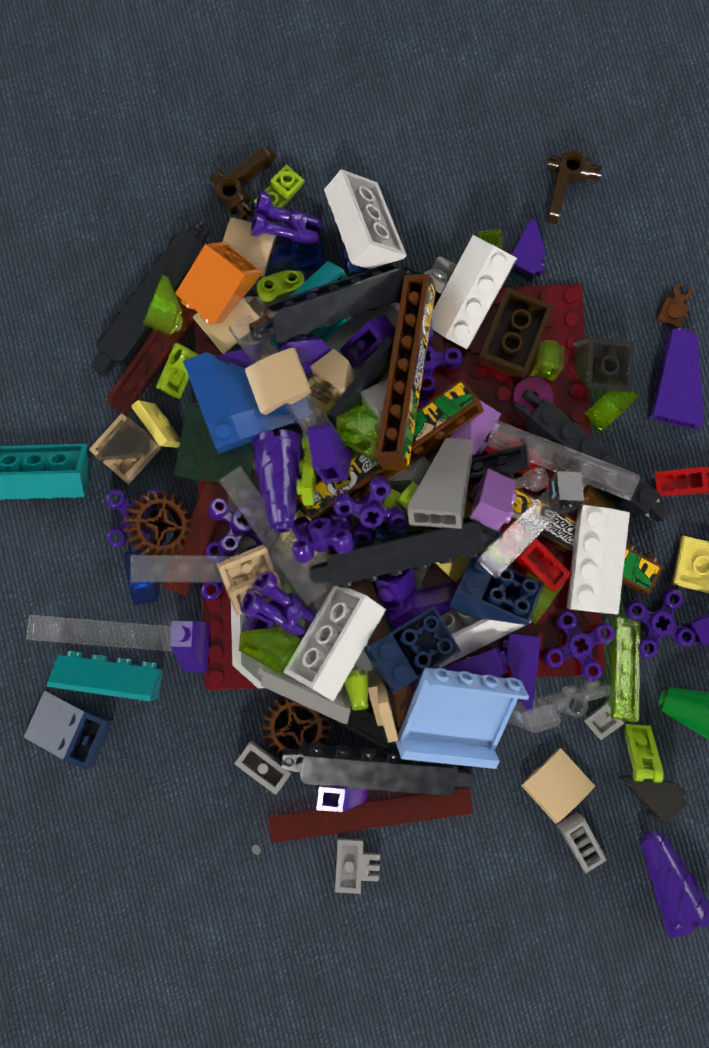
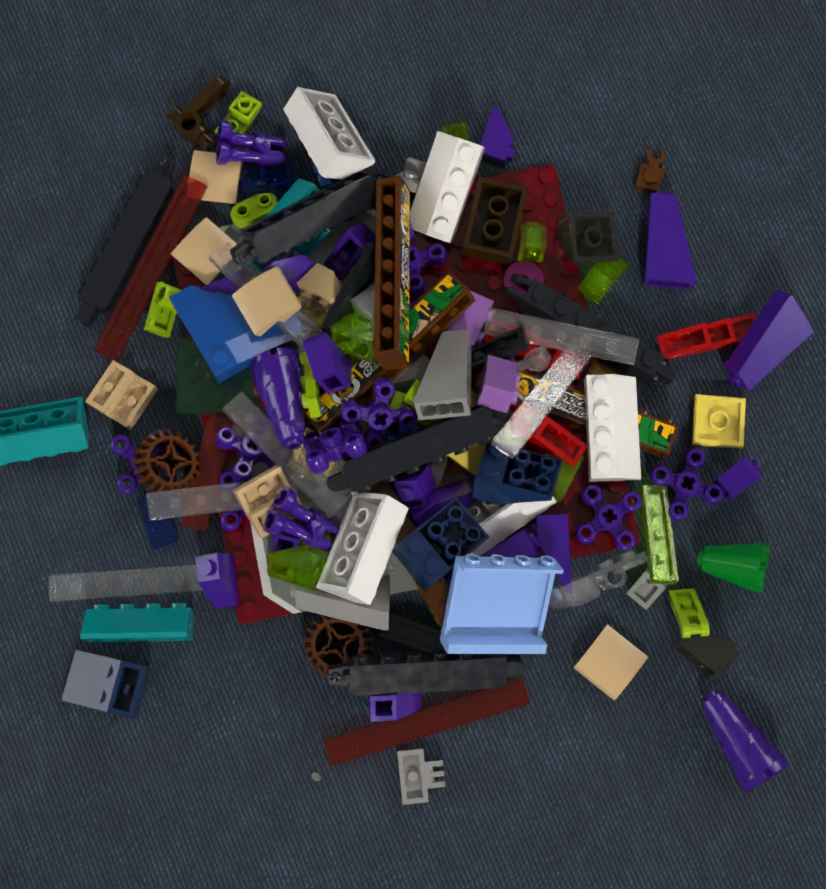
camera: 10 degrees left, 5 degrees down
(127, 444) = (125, 387): clear smoke slope -> none
(156, 424) = (151, 364): light yellow plate -> none
(164, 309) = (142, 249): clear neon green slope -> none
(217, 282) = (191, 215): orange slope -> none
(263, 767) = (310, 689): light grey brick -> none
(357, 689) = (392, 590): lime cone -> none
(381, 706) = (420, 606): tan slope -> none
(565, 491) = (568, 365): brick -> none
(566, 175) = (538, 53): dark brown piece -> none
(573, 828) = (628, 700): light grey slope -> none

